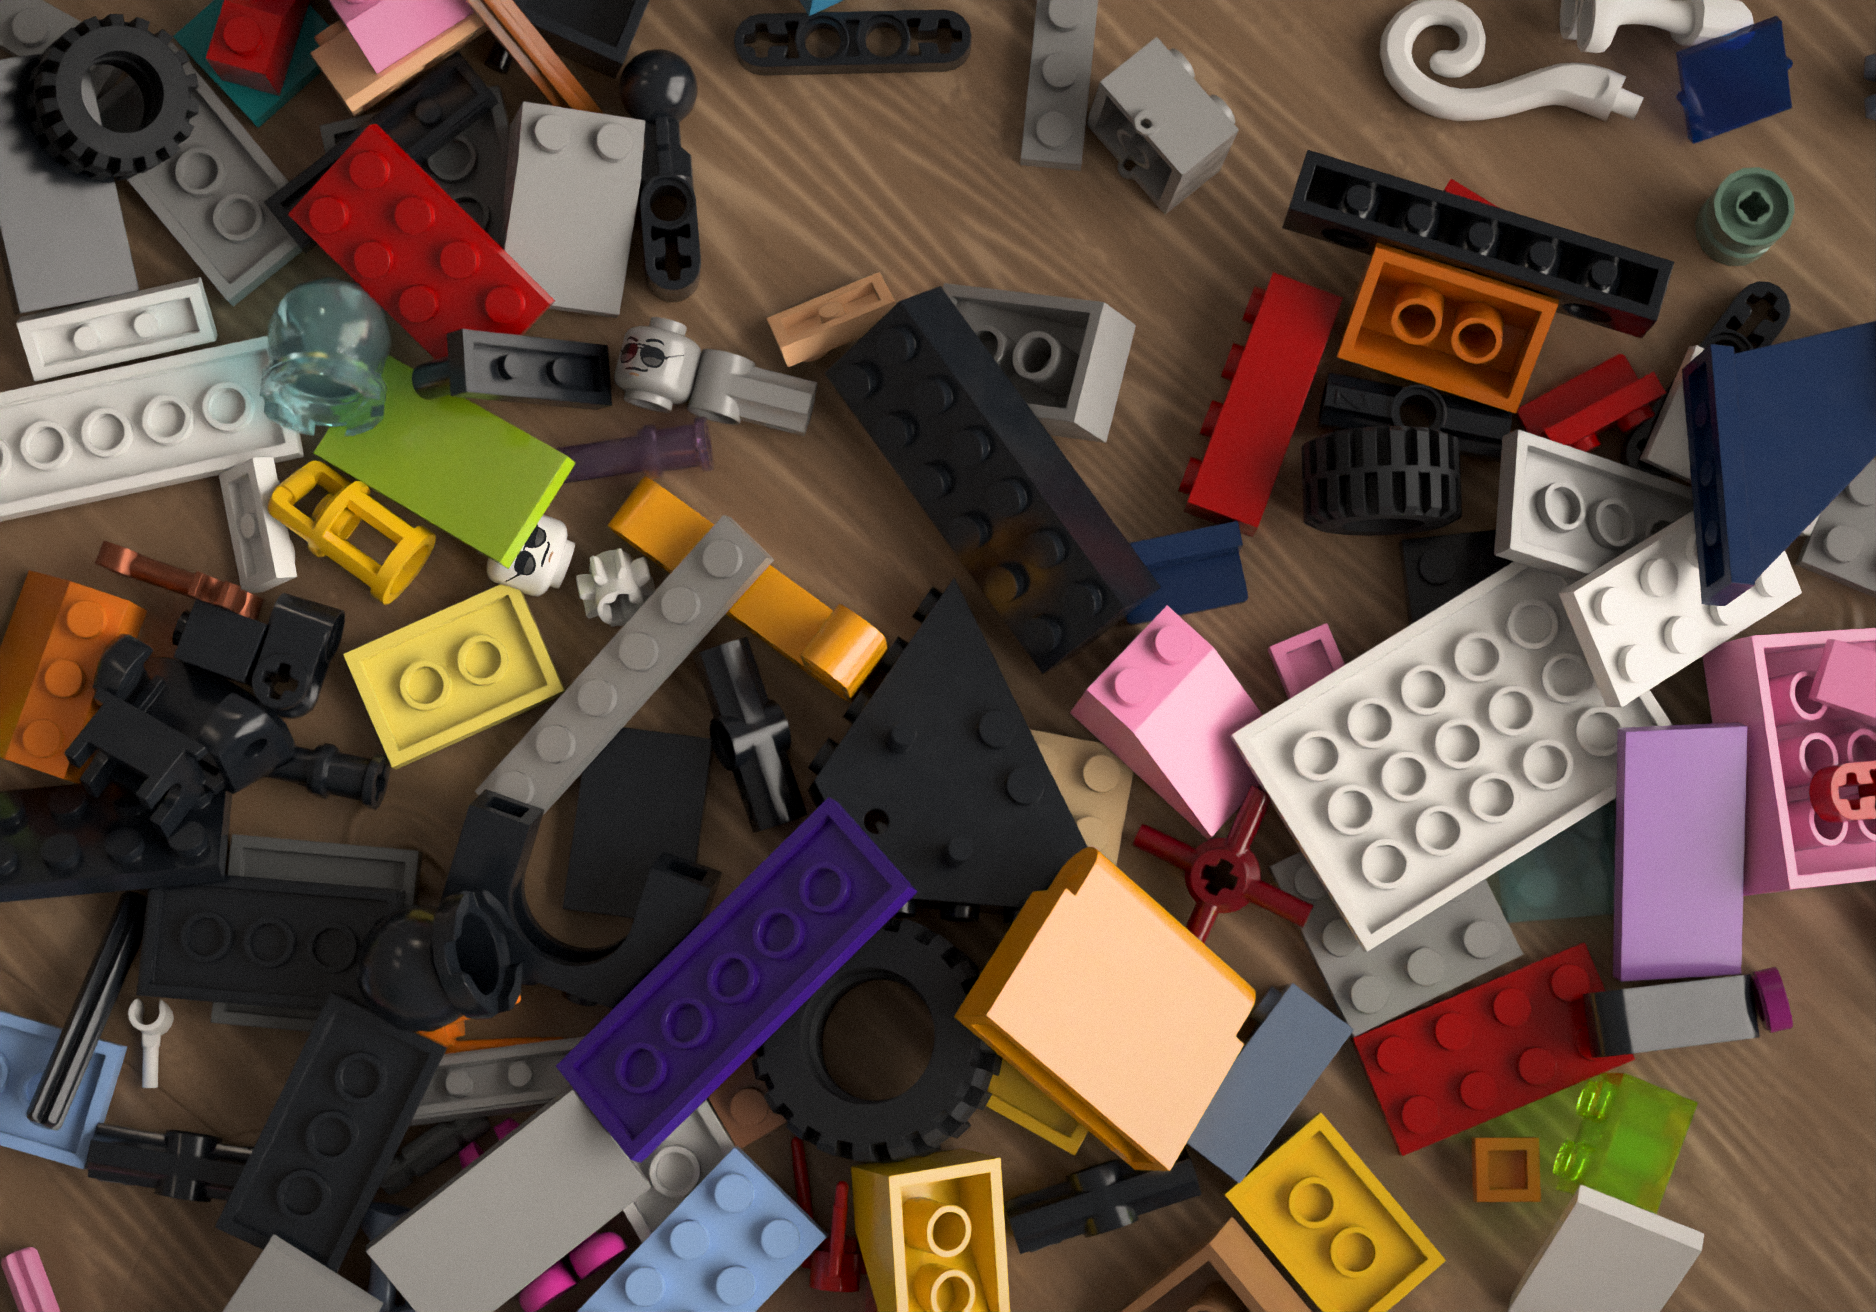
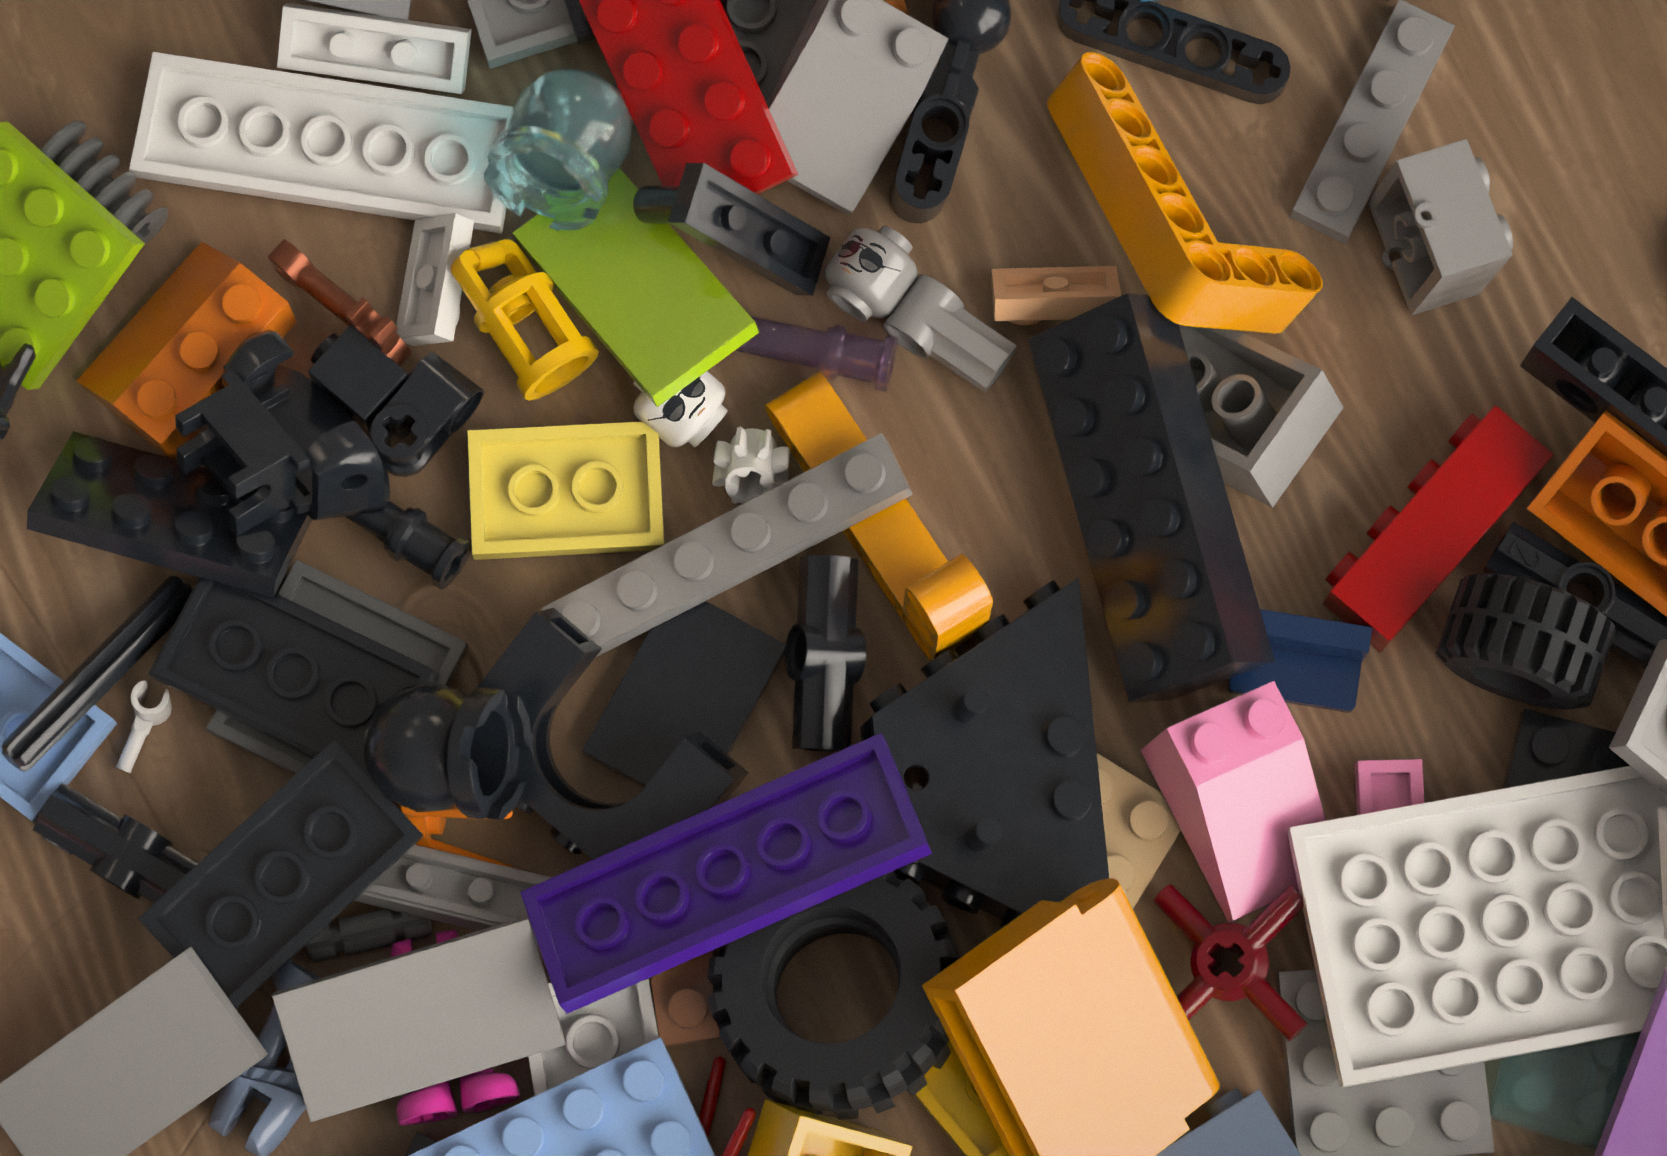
camera: 15 degrees right, 5 degrees down
(900, 218) = (1158, 221): none -> light orange beam

